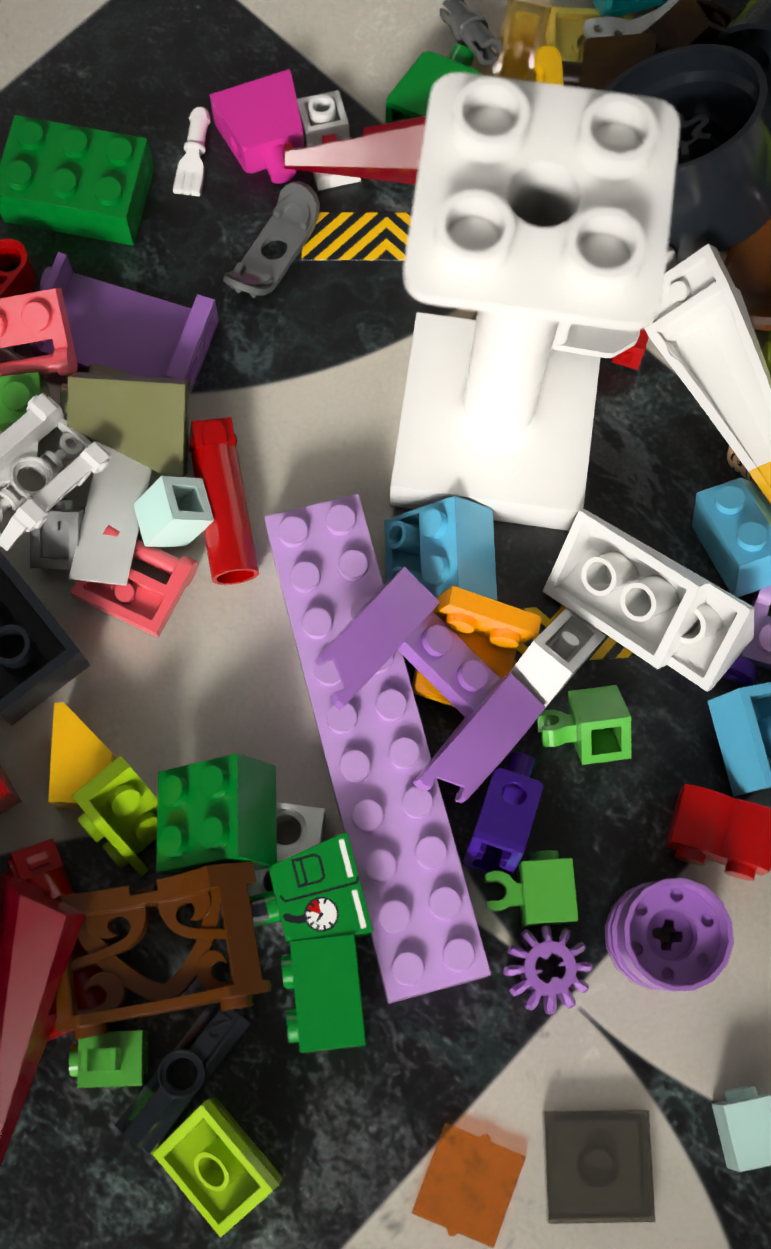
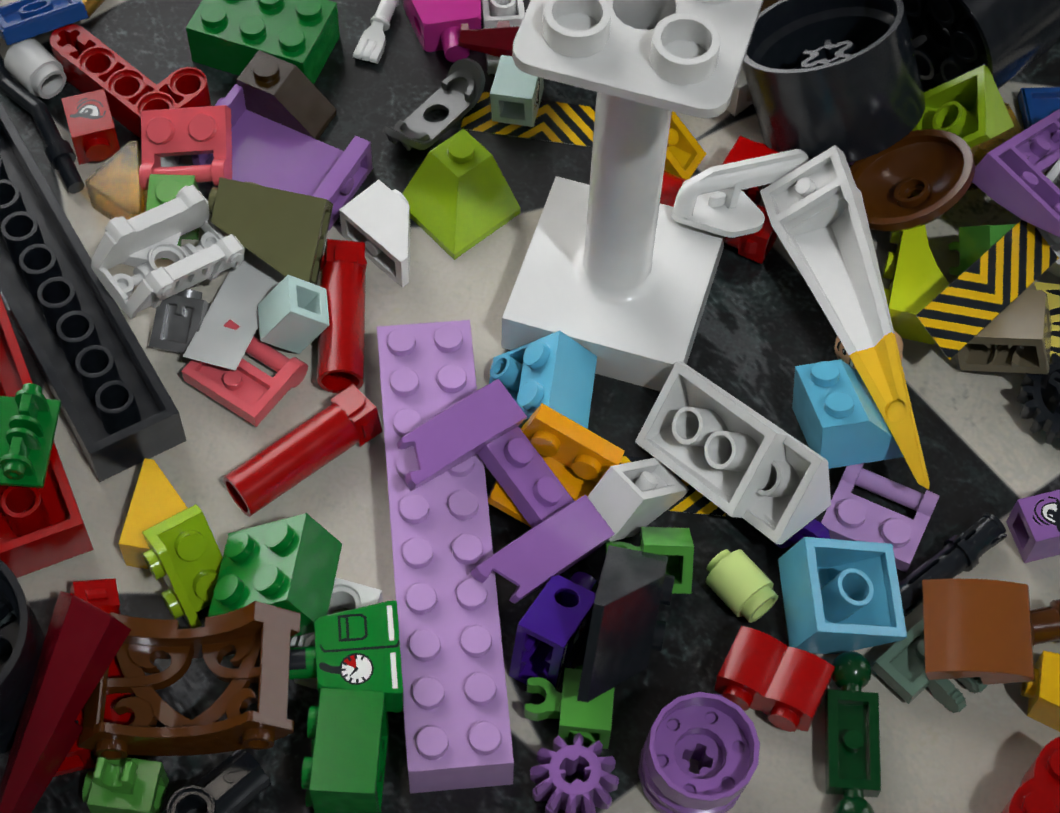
camera: 10 degrees right, 15 degrees down
(112, 254) = (285, 95): none -> dark brown slope
(213, 660) = (304, 450): none -> red piece
(243, 389) = (382, 222): none -> white slope
(316, 342) = (460, 194): none -> lime slope
(354, 209) = (515, 94): none -> light aqua brick
(573, 805) = (624, 619): none -> black slope
(676, 735) = (741, 584): none -> yellowish green brick

